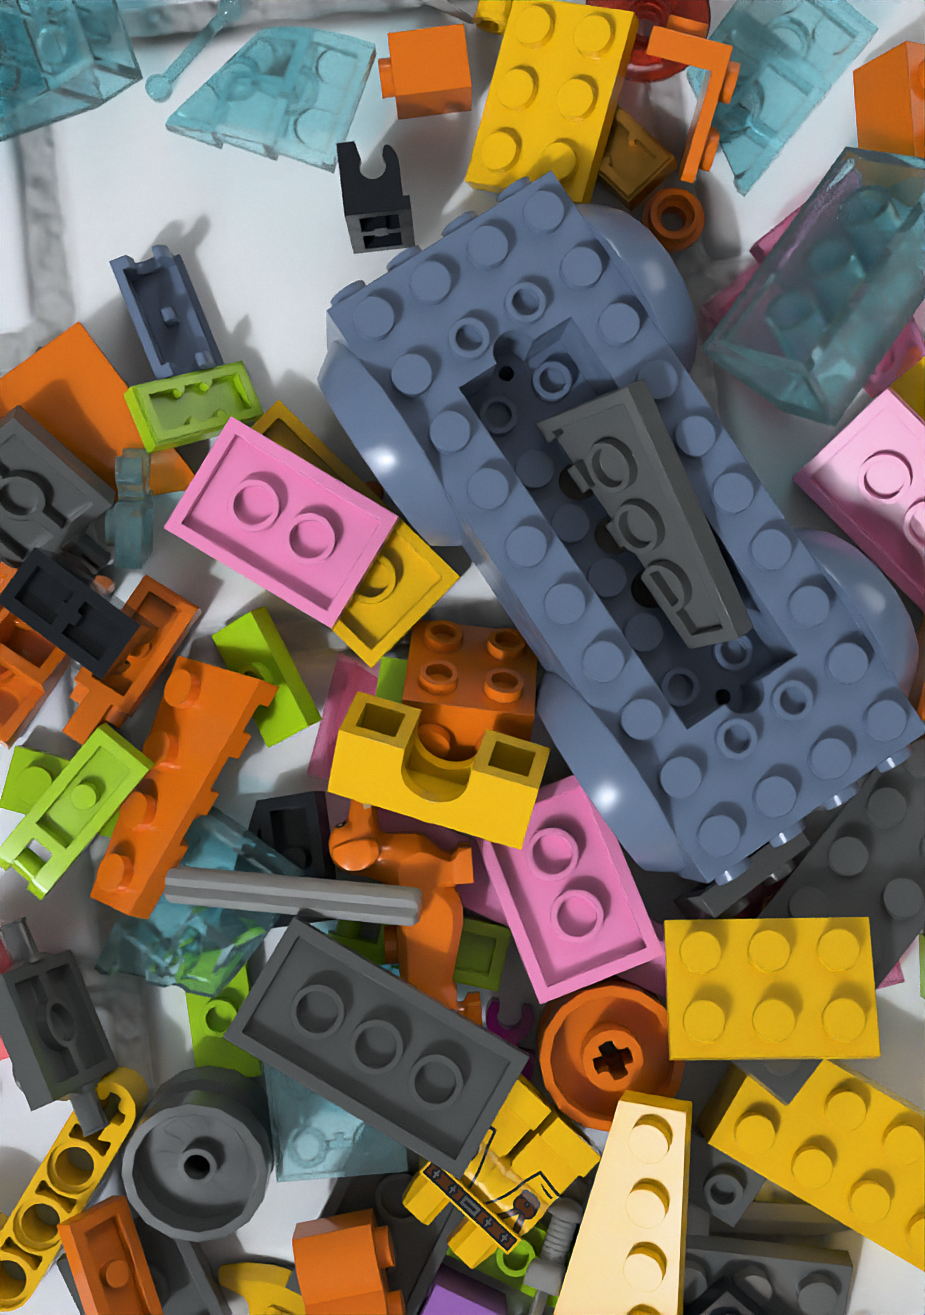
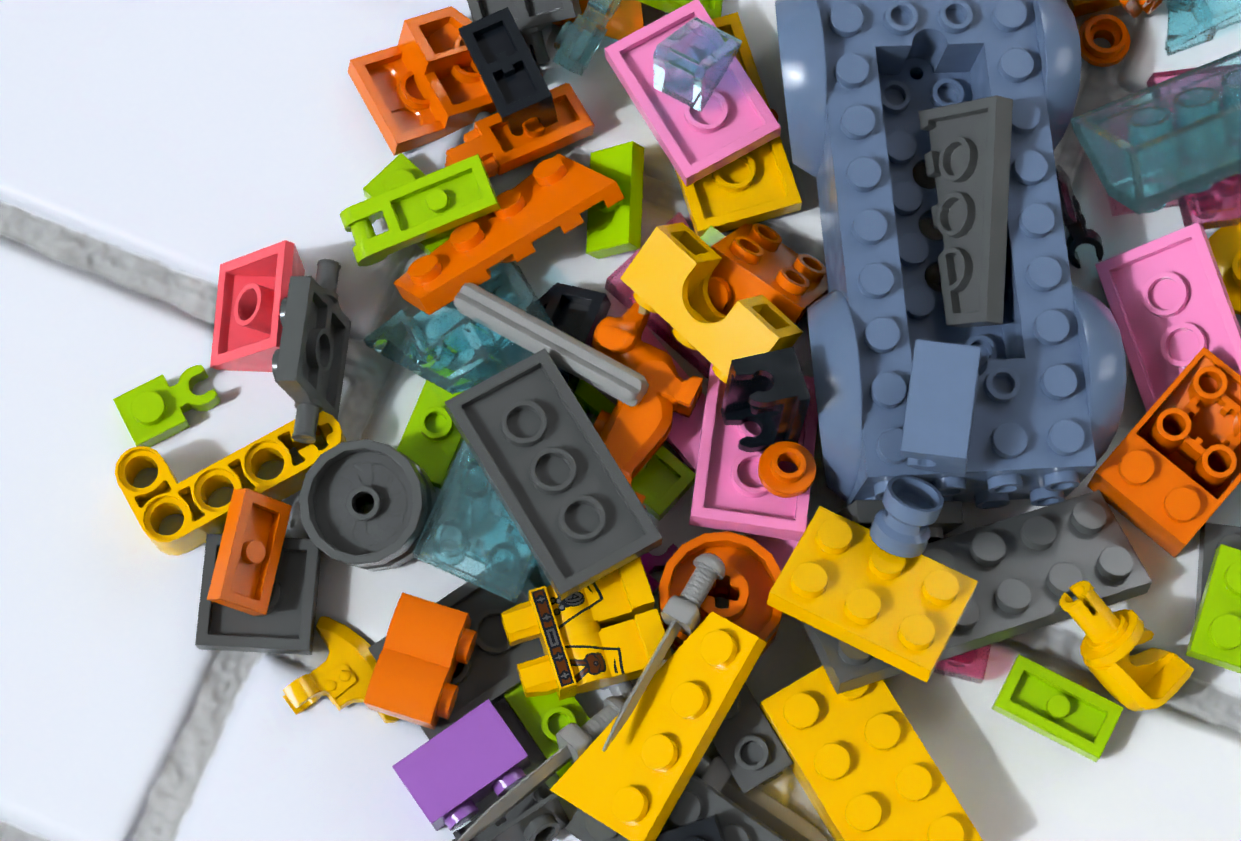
camera: 30 degrees right, 15 degrees down
(269, 494) = (693, 62): none -> clear light blue slope
(567, 845) = (768, 392): none -> black hinge
(589, 1119) = (681, 615): none -> light grey sword
(591, 909) = (786, 484): none -> orange plate
(753, 780) = (940, 406): none -> sand blue hinge
(758, 455) = (1075, 221): none -> black piece
(767, 899) = (904, 521): none -> sand blue wheel

